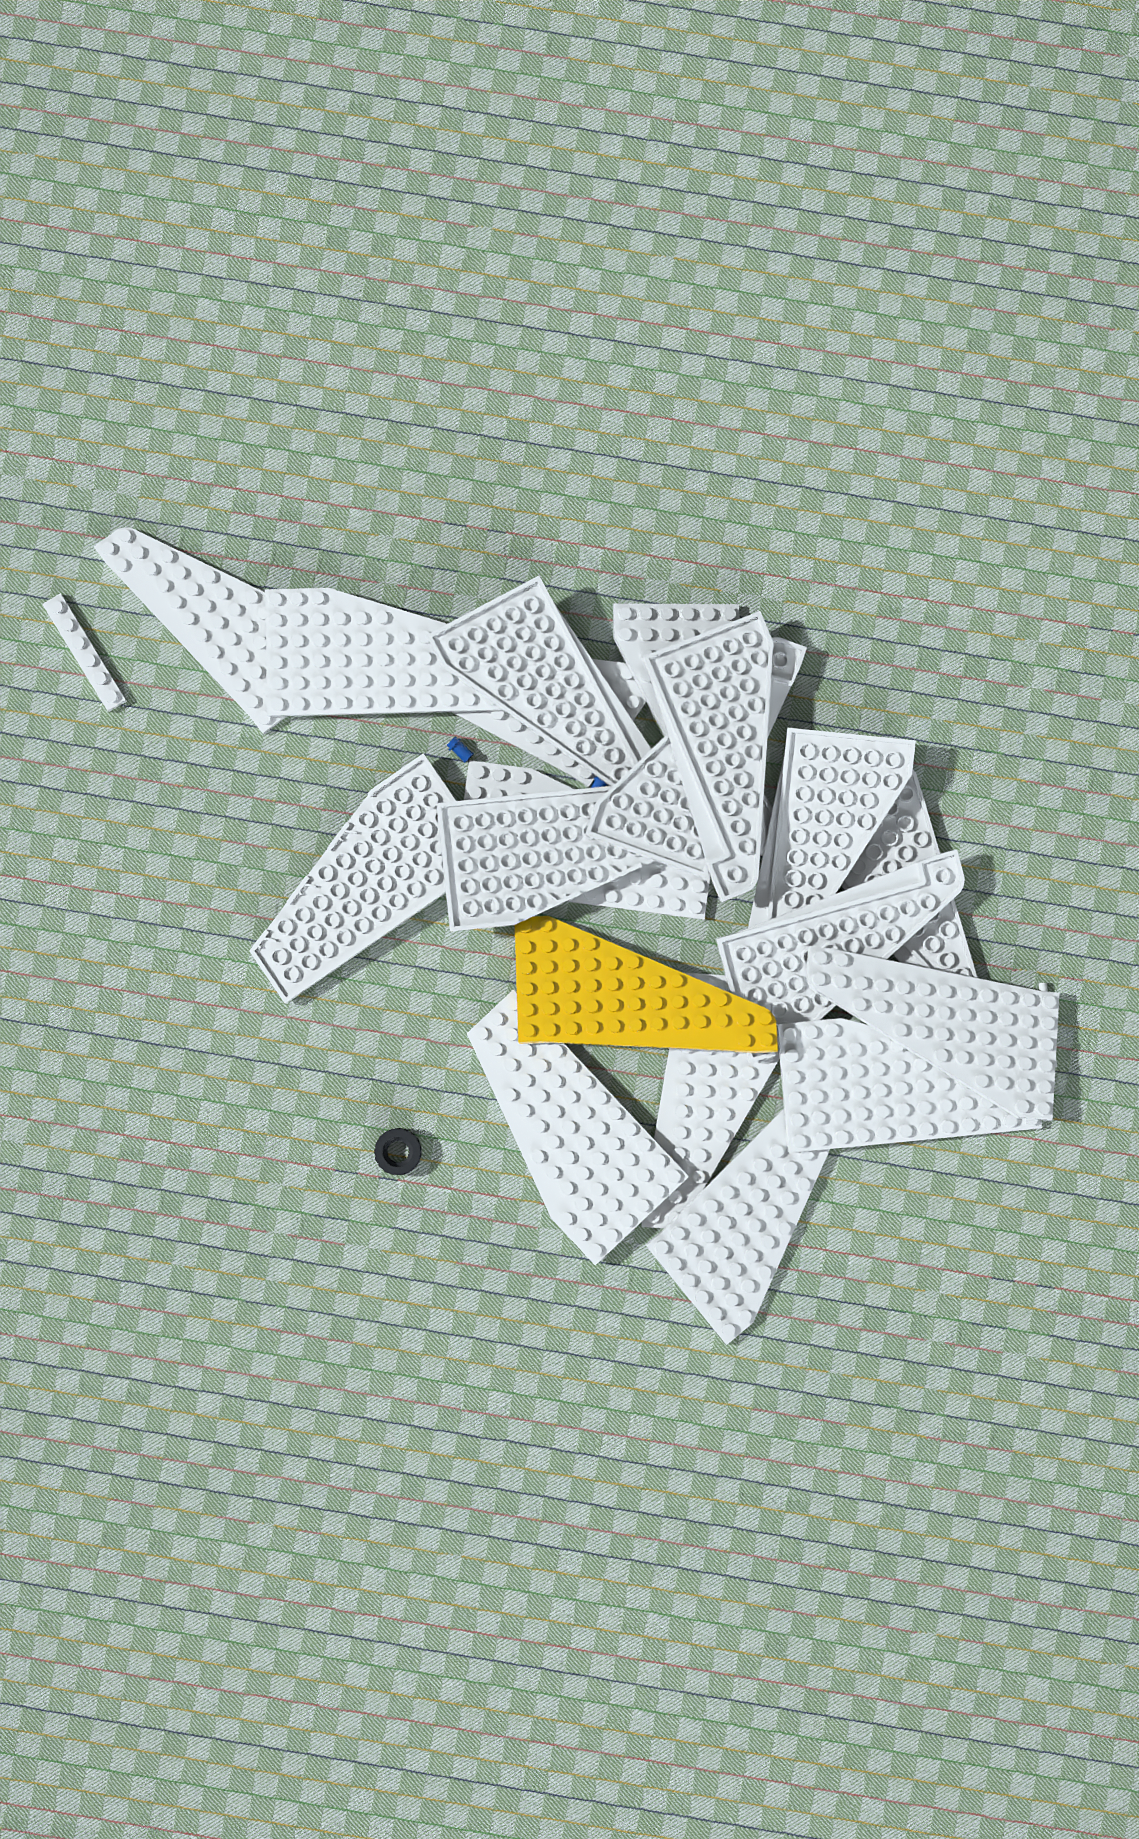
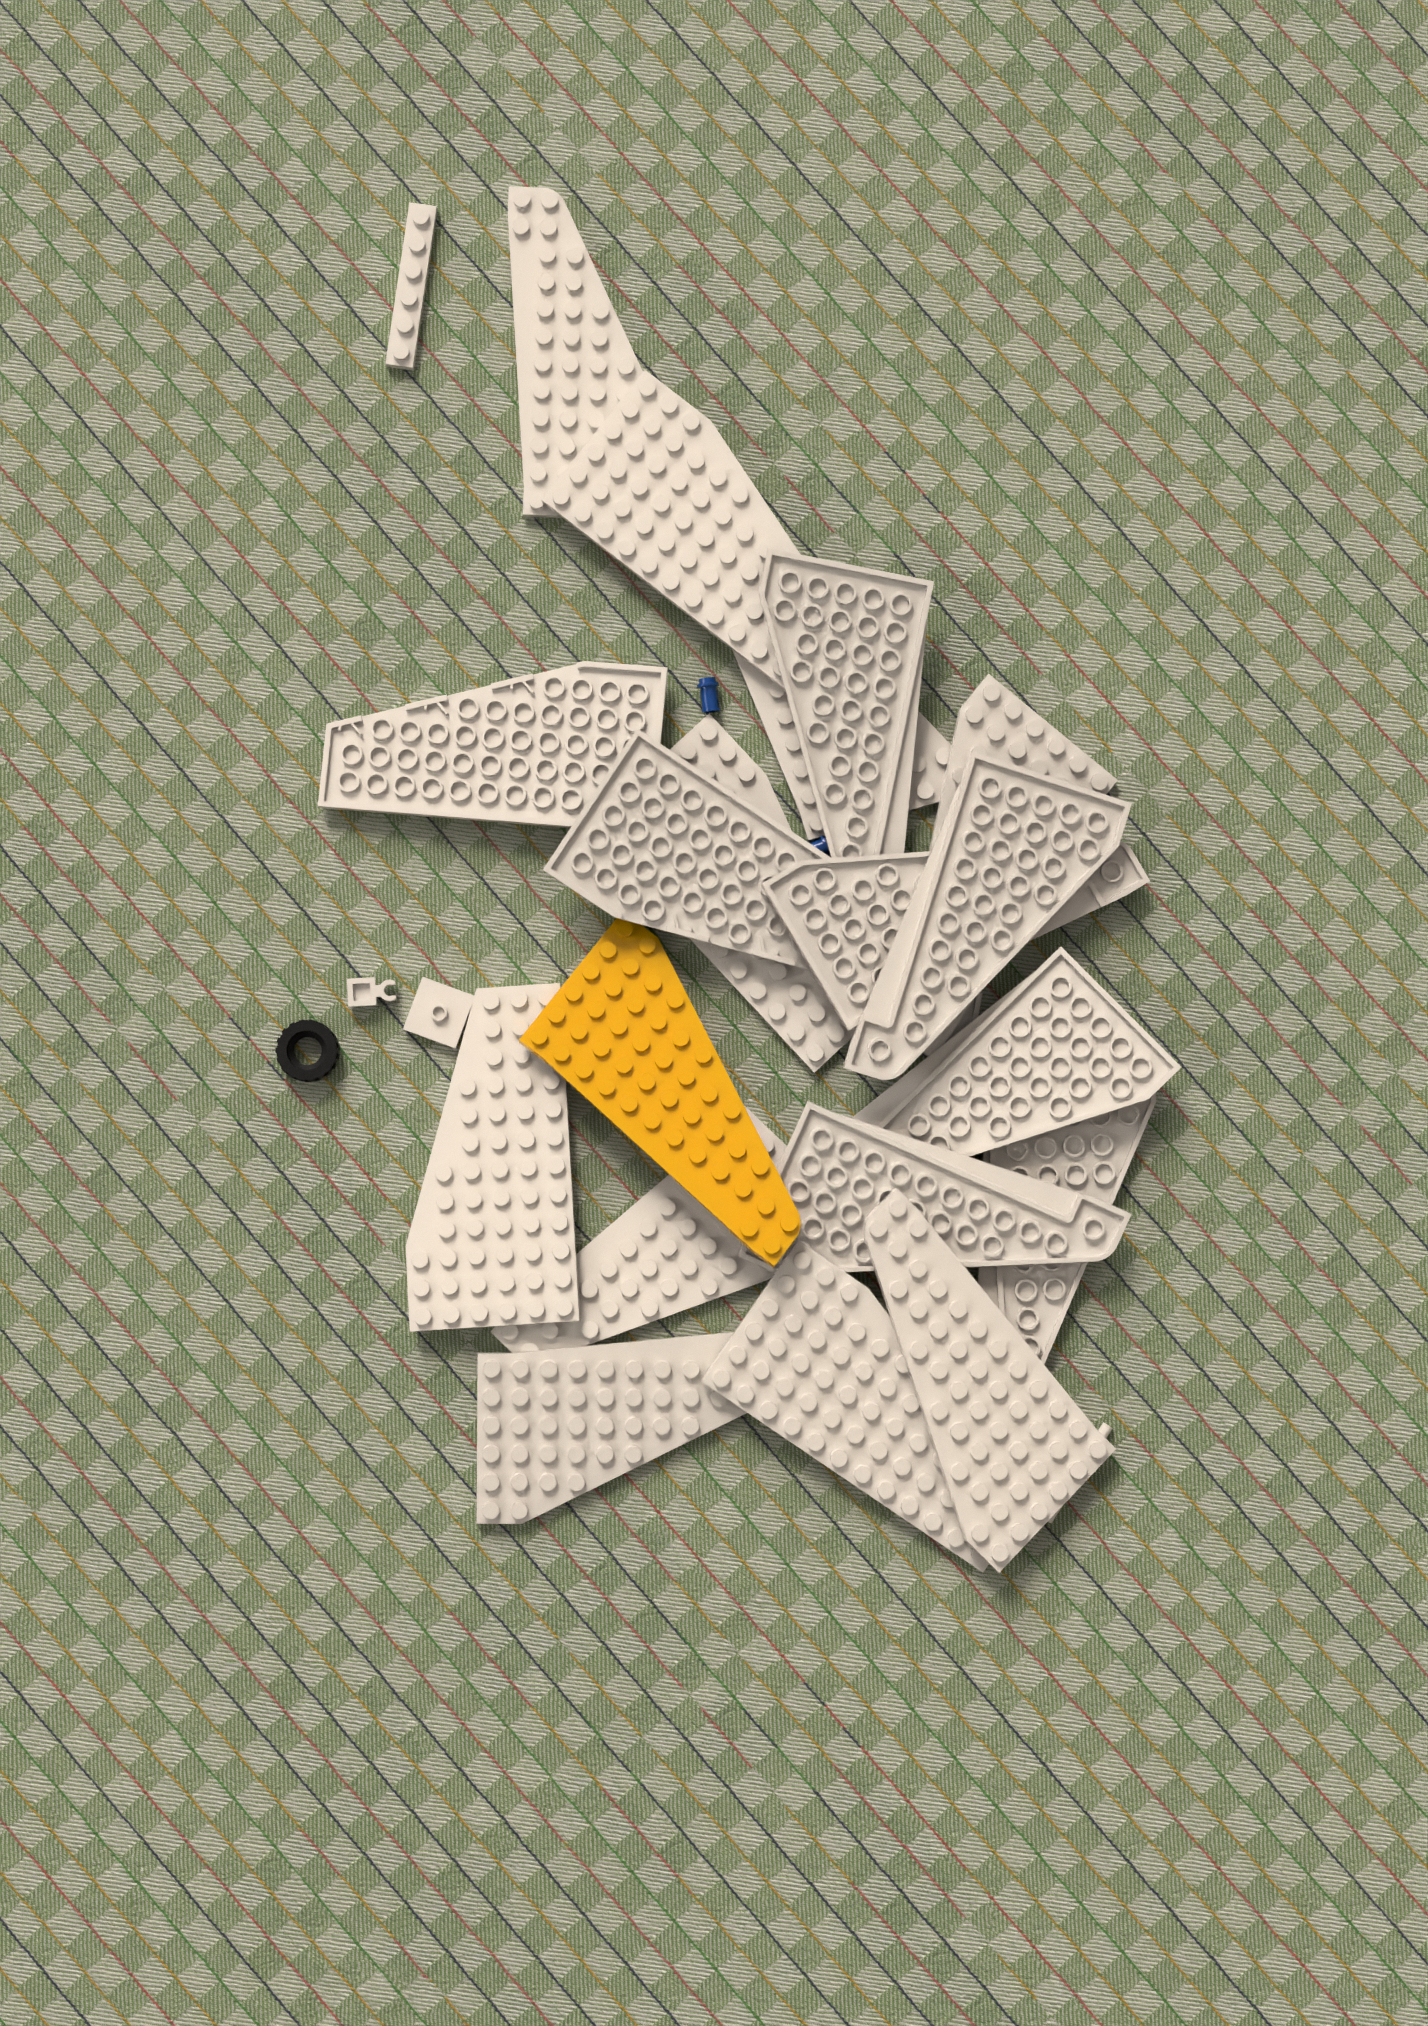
camera: 45 degrees right, 0 degrees up
(403, 1088) = (364, 991): none -> white plate
(456, 1065) = (439, 1012): none -> white plate

